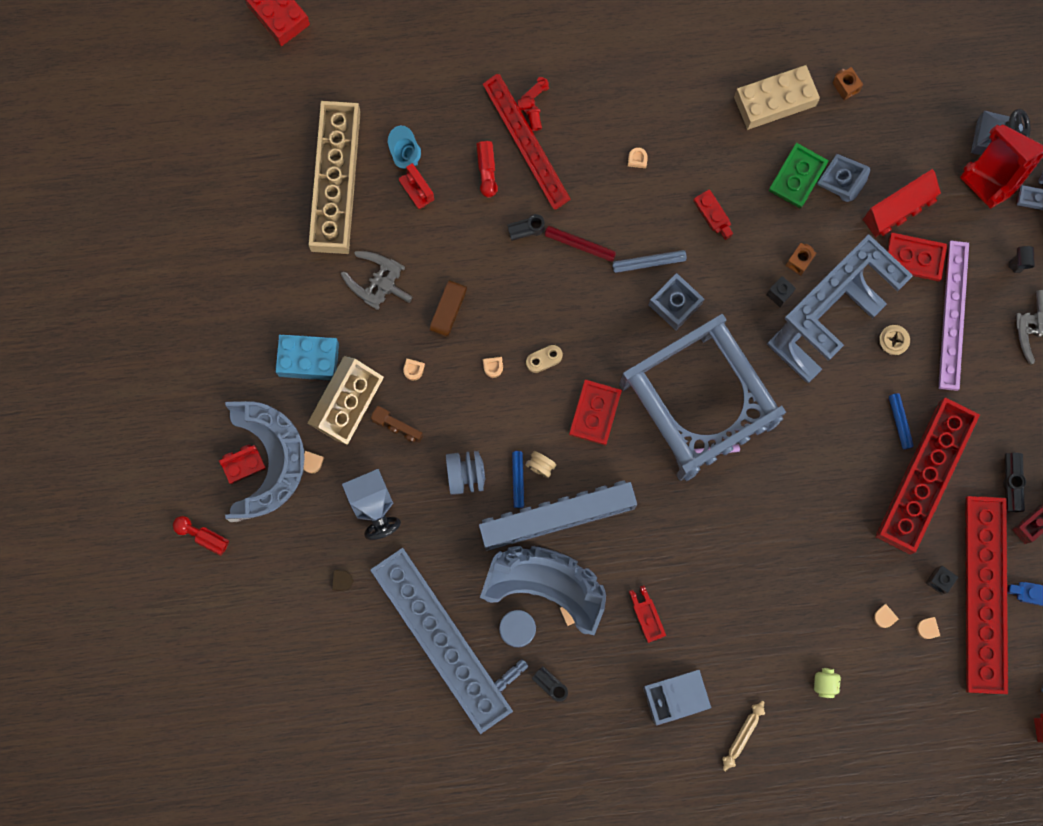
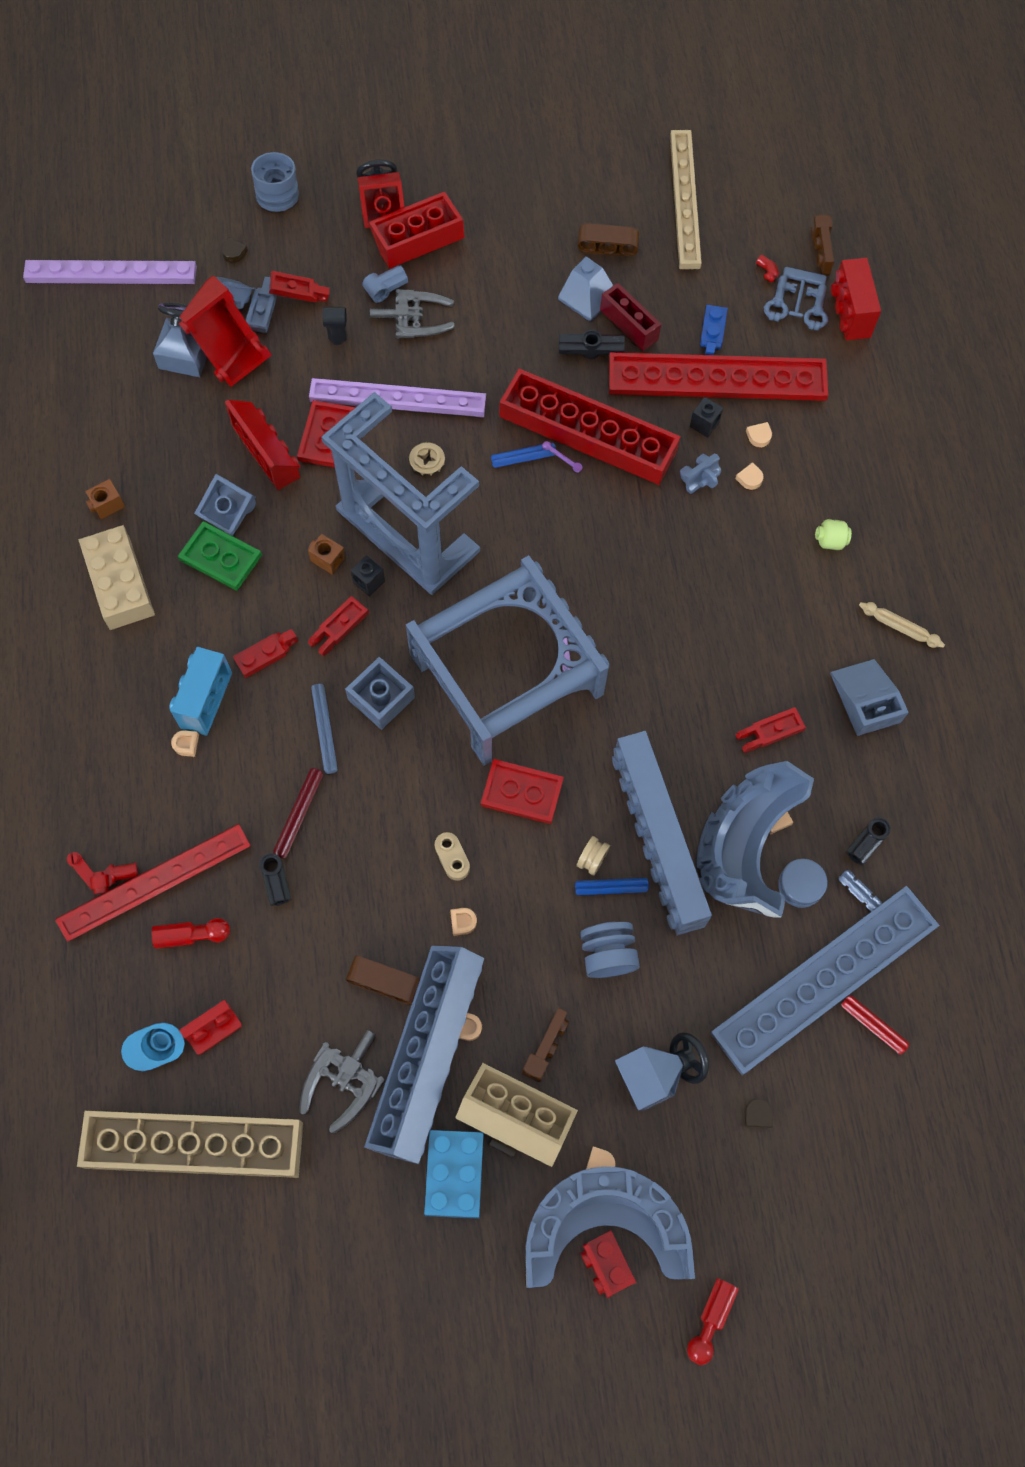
camera: 90 degrees left, 10 degrees down
(392, 335) = (424, 1053): none -> sand blue brick
(405, 676) = (875, 1024): none -> red axle
(676, 165) = (201, 690): none -> dark azure brick
(738, 270) = (339, 624): none -> red hinge
(884, 574) = (703, 474): none -> sand blue hips
(890, 466) = (577, 467): none -> medium lavender hinge

